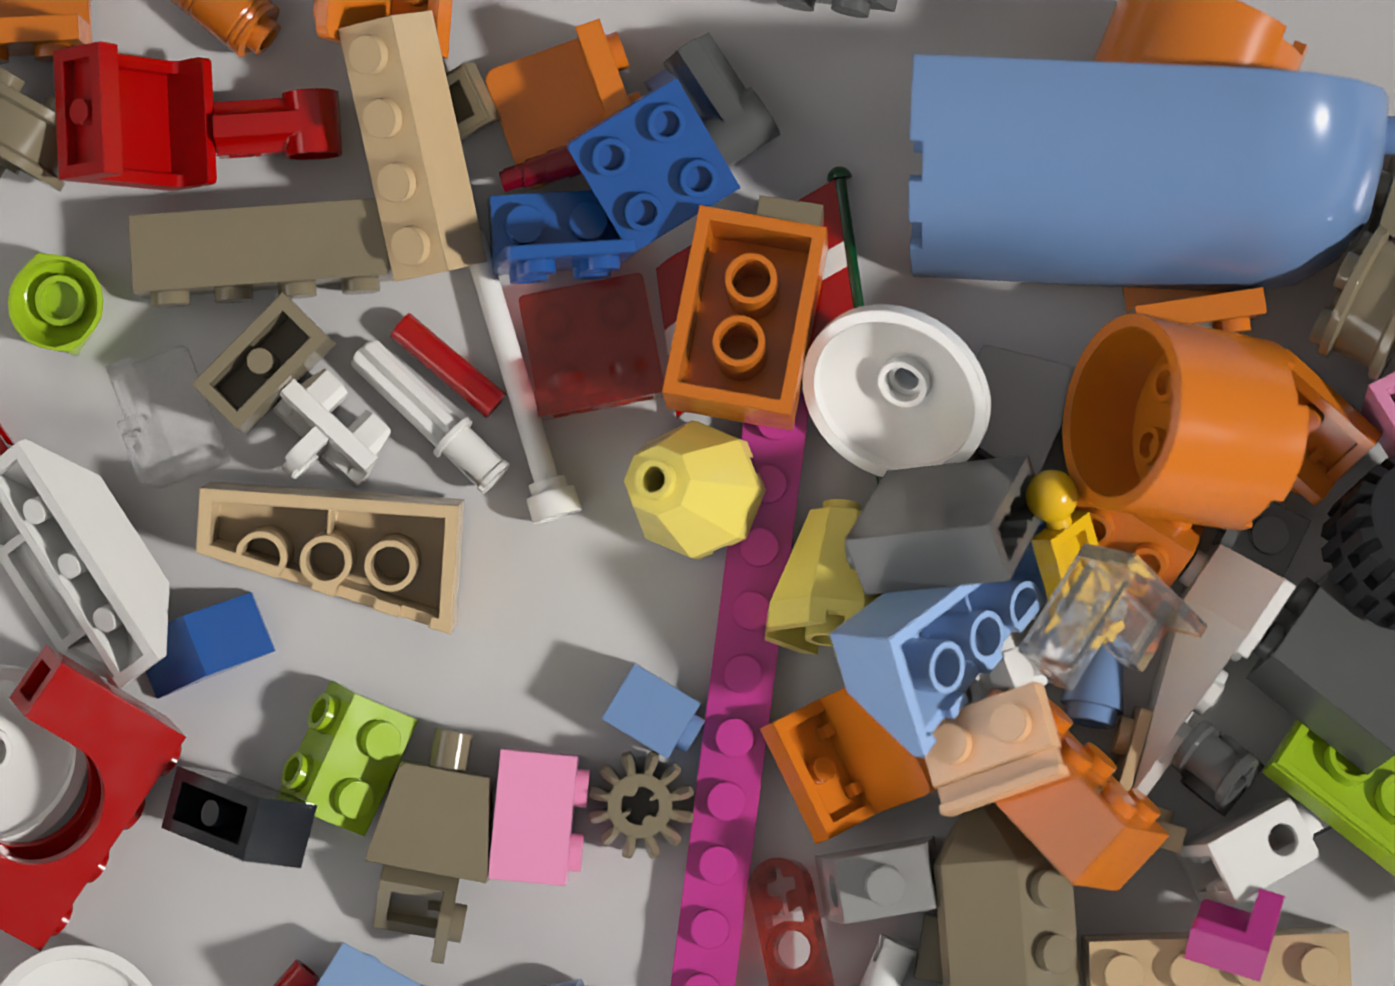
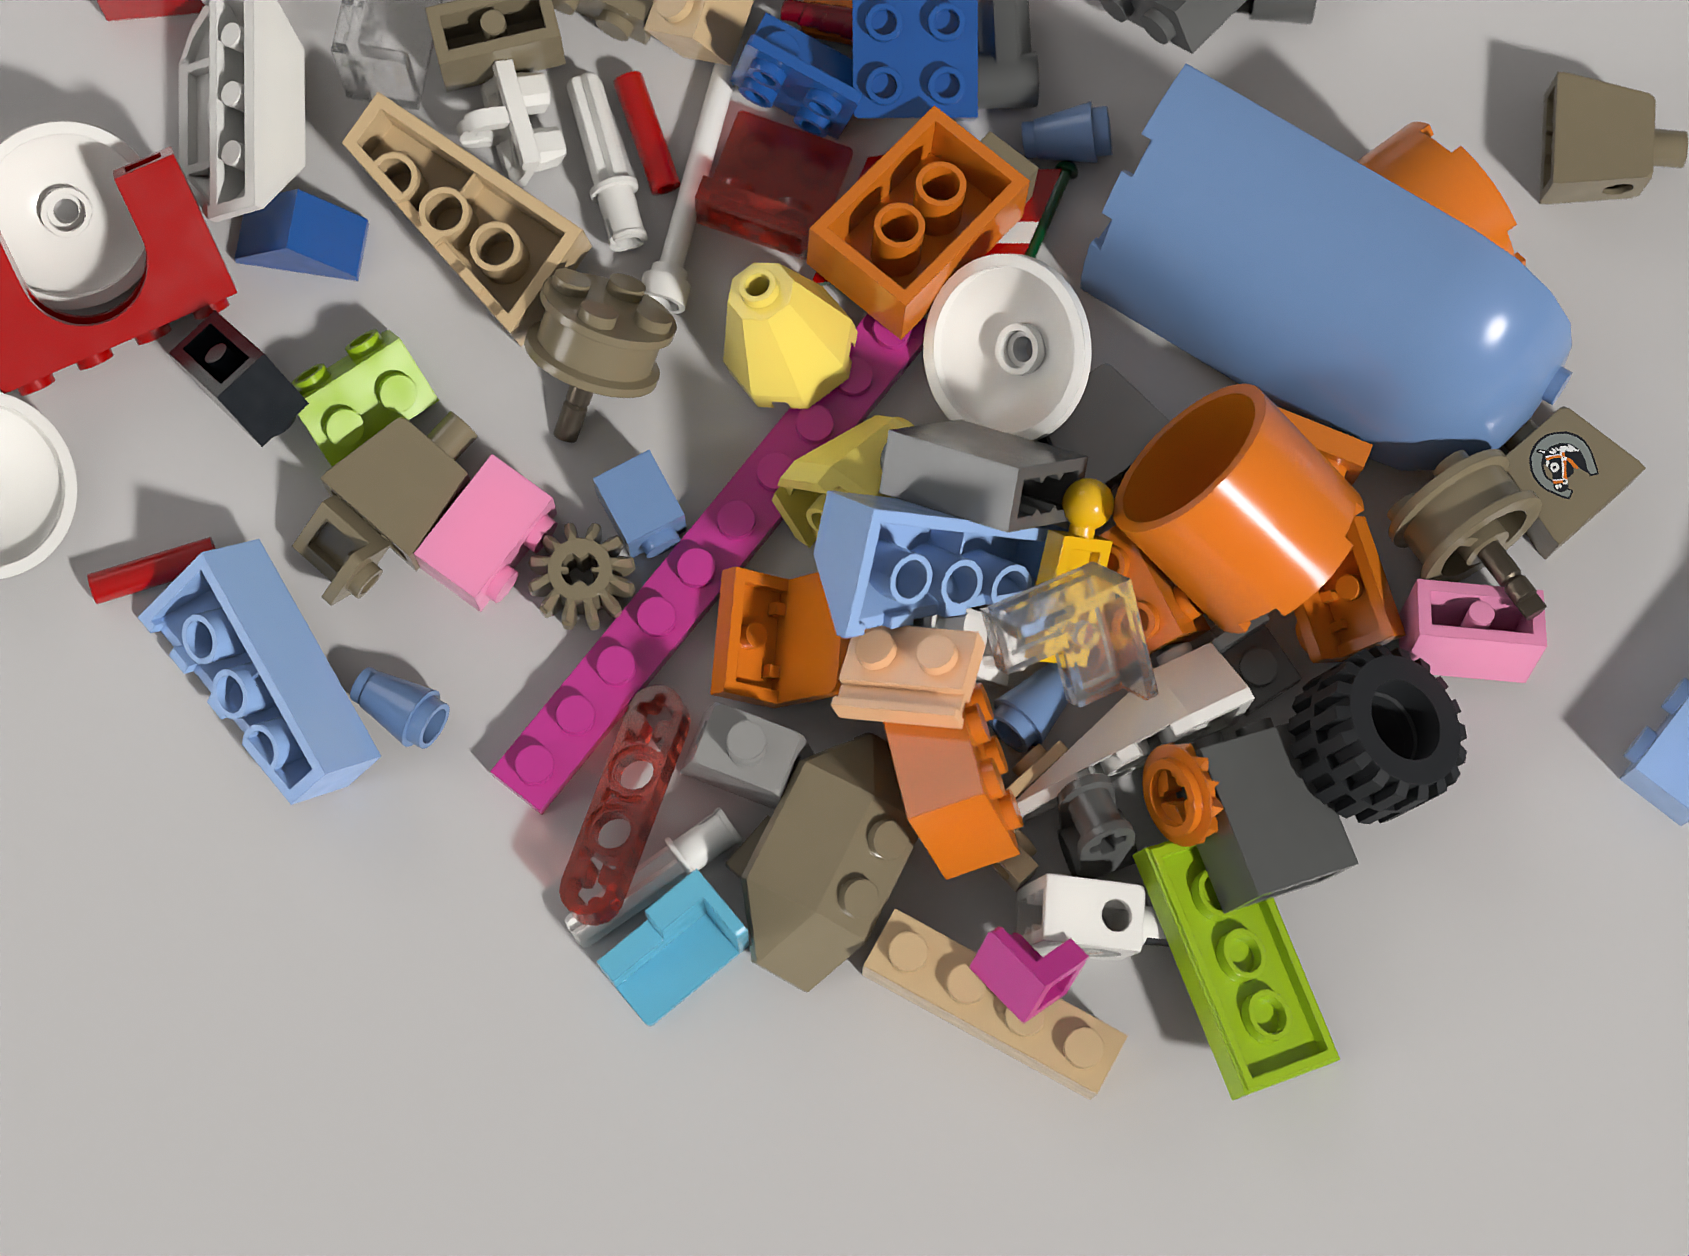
camera: 20 degrees right, 10 degrees down
(530, 591) = (598, 340): none -> dark tan wheel
(824, 144) = (1069, 135): none -> medium blue cone
(1295, 712) = (1179, 819): none -> orange gear

